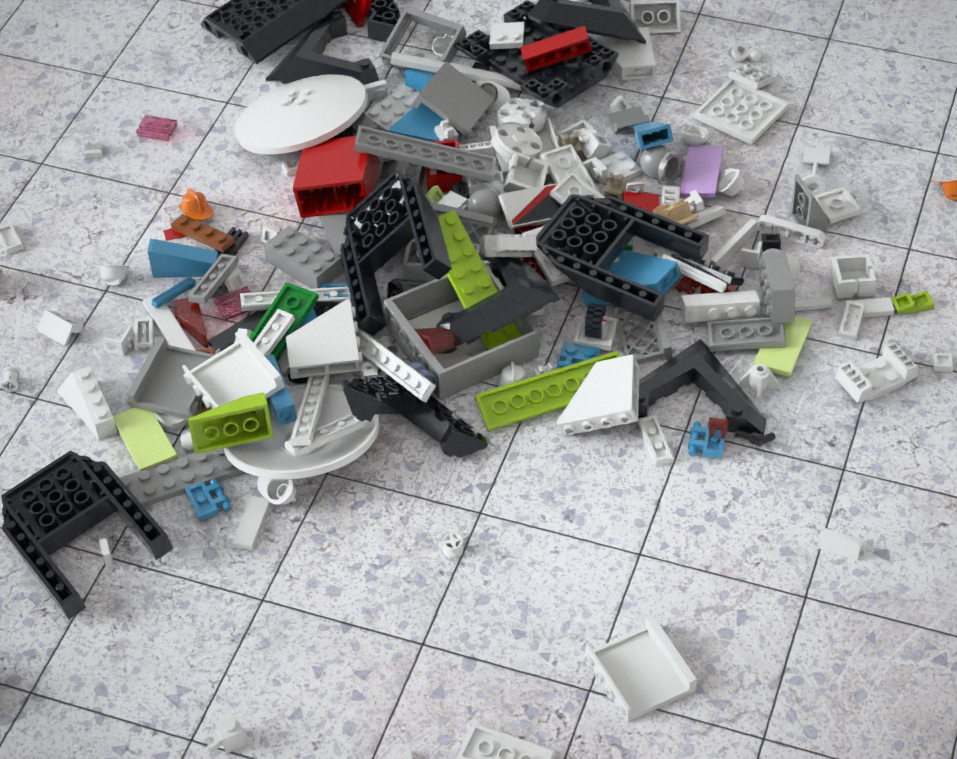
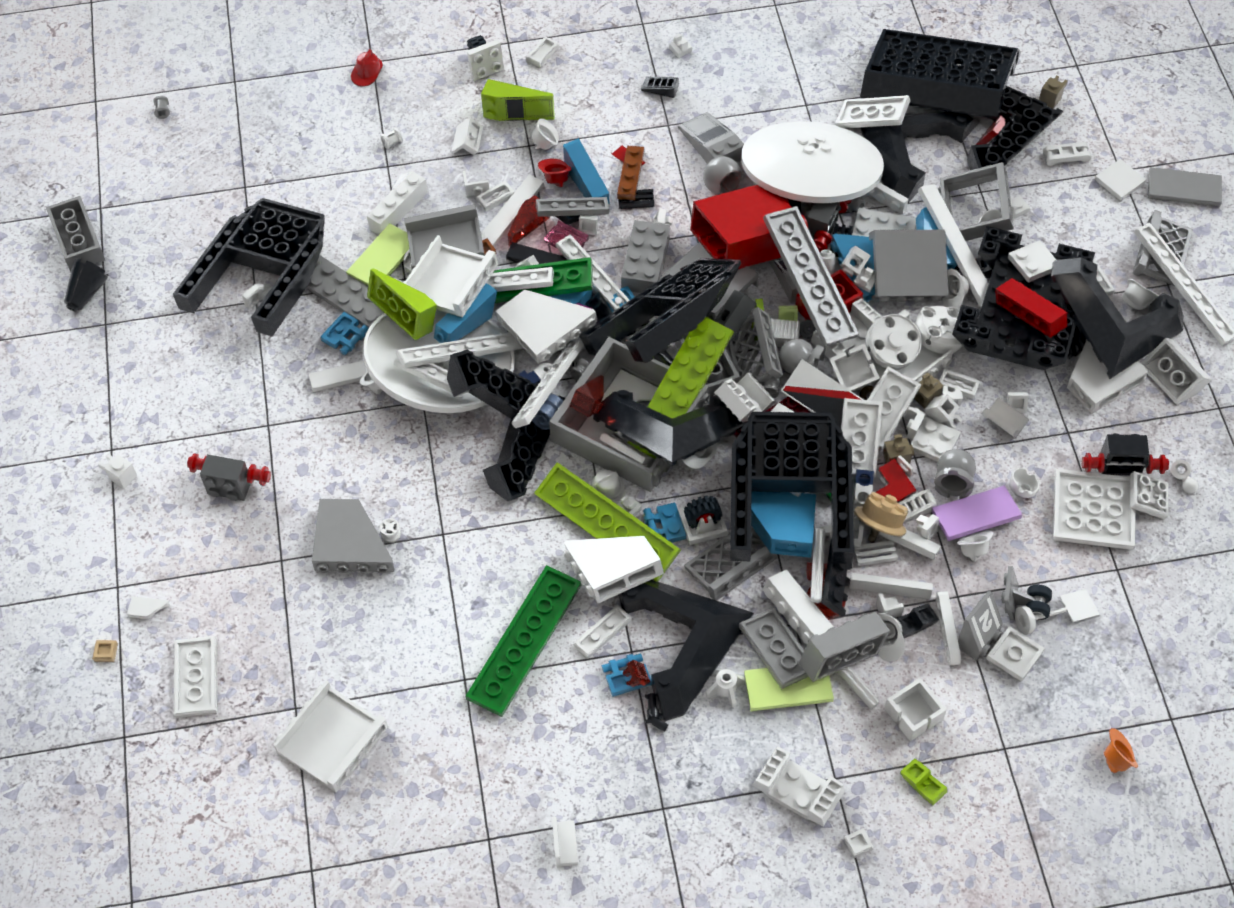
camera: 60 degrees right, 10 degrees up
(57, 273) = (514, 103): none -> lime slope
(130, 173) = (666, 85): none -> black slope
(156, 127) = (734, 73): clear pink plate -> none
(160, 278) = (555, 171): none -> red piece
(173, 292) = (548, 189): dark azure axle -> none
(196, 206) = (657, 151): orange piece -> none
(215, 169) = (712, 138): none -> light grey slope
(262, 175) = (722, 175): none -> light grey wheel
(280, 61) = (873, 112): none -> white tile
(306, 643) = (227, 476): none -> dark grey brick
(427, 126) = (860, 258): none -> white brick
(440, 578) = (348, 539): none -> light grey slope
(513, 335) = (627, 449): none -> white tile
(631, 494) = (523, 641): none -> green plate
(652, 134) = (977, 442): dark azure slope -> none
(712, 69) = (1125, 455): none -> black brick
(785, 177) = (1035, 599): none -> plate
(851, 319) = (859, 734): white plate -> none
(877, 307) = (893, 747): white tile -> none

